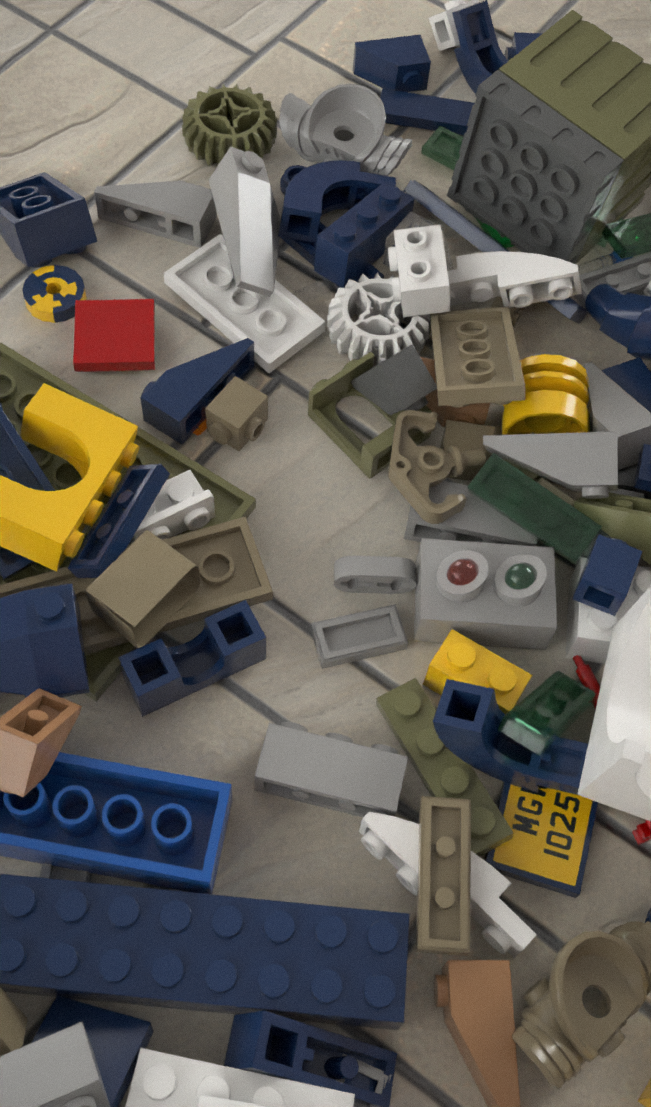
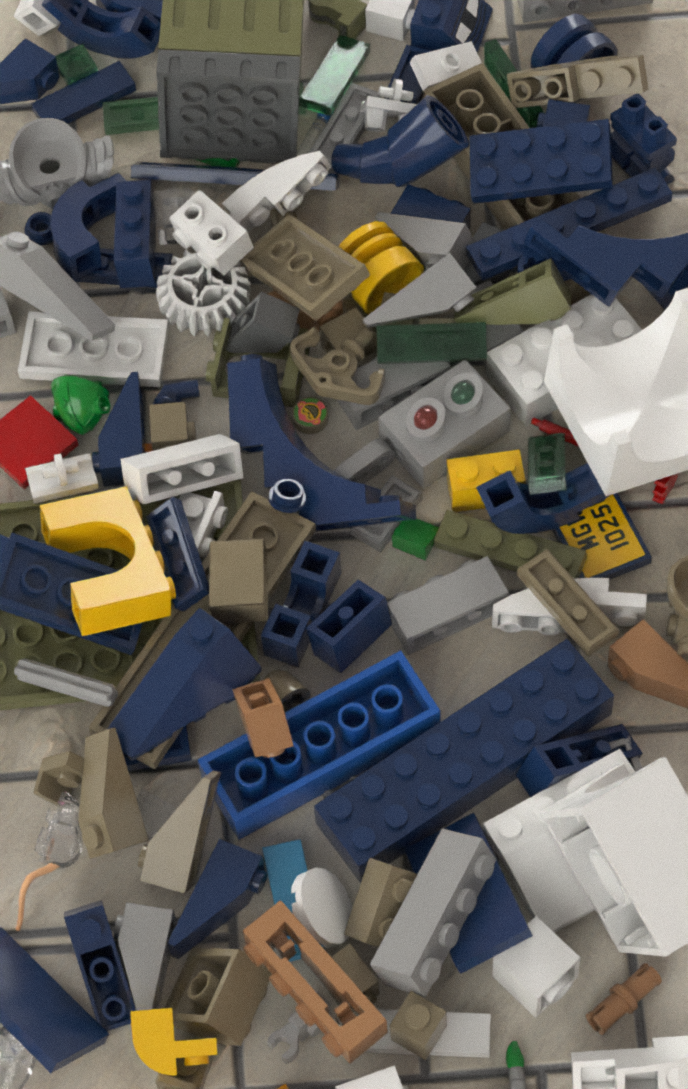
camera: 30 degrees left, 0 degrees up
(100, 732) = (288, 688): none -> dark tan hat
(106, 383) = (62, 478): none -> white hips
(184, 333) = (79, 402): none -> green helmet
(206, 450) = (182, 468): none -> white brick
(216, 716) = (349, 626): none -> dark blue brick
(272, 538) = (287, 496): none -> dark blue plate
(277, 387) = (177, 392): none -> dark blue arm
(311, 569) = (262, 425): none -> dark blue arch
(364, 679) = (415, 537): none -> green slope
(373, 493) = (310, 415): none -> tile
(444, 83) = (75, 64): none -> clear green plate
(607, 574) = (515, 350): dark blue brick -> none

